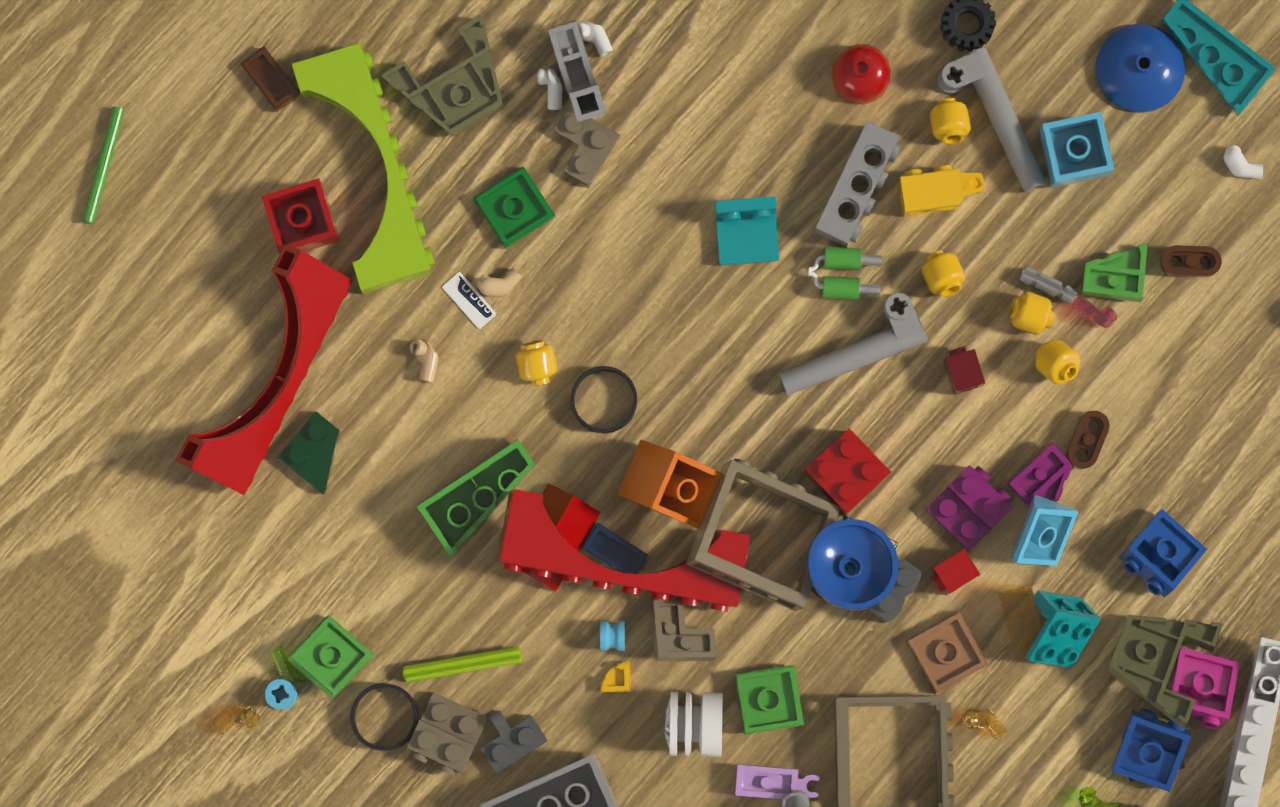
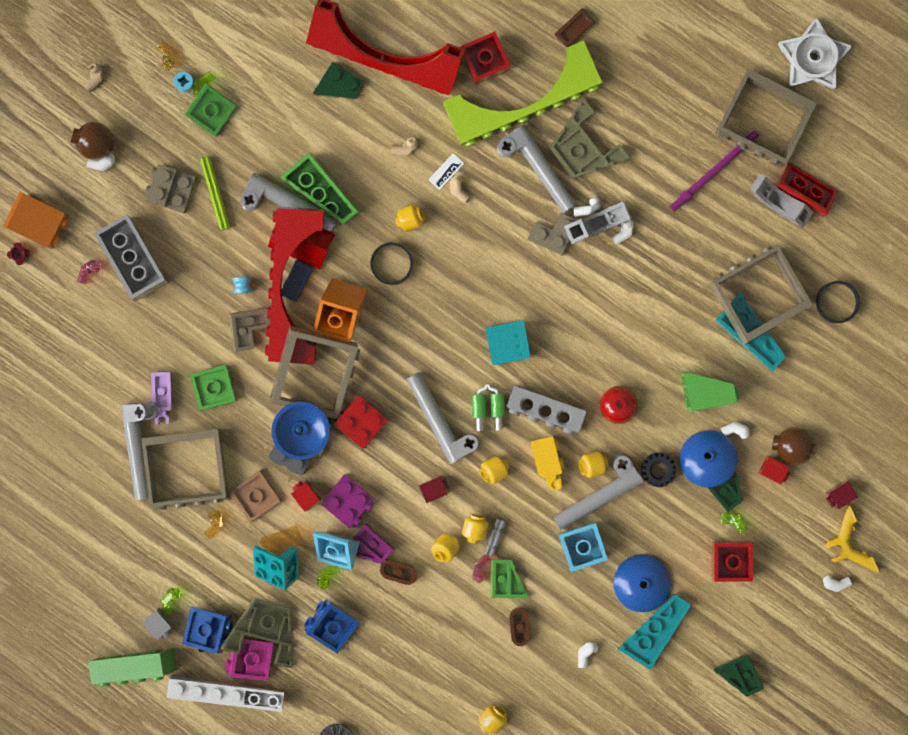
camera: 80 degrees right, 5 degrees up
(353, 712) = (158, 143): black tyre -> none
(435, 175) = (522, 140): none -> light grey axle
(461, 590) = (260, 187): none -> light grey axle
(513, 742) = (169, 229): dark grey plate -> none
(514, 207) = (508, 193): green tile -> none
(617, 679) = (216, 291): yellow tile -> none
(695, 724) = (191, 342): white wheel -> none
(1083, 556) = (324, 576): none -> clear neon green arm

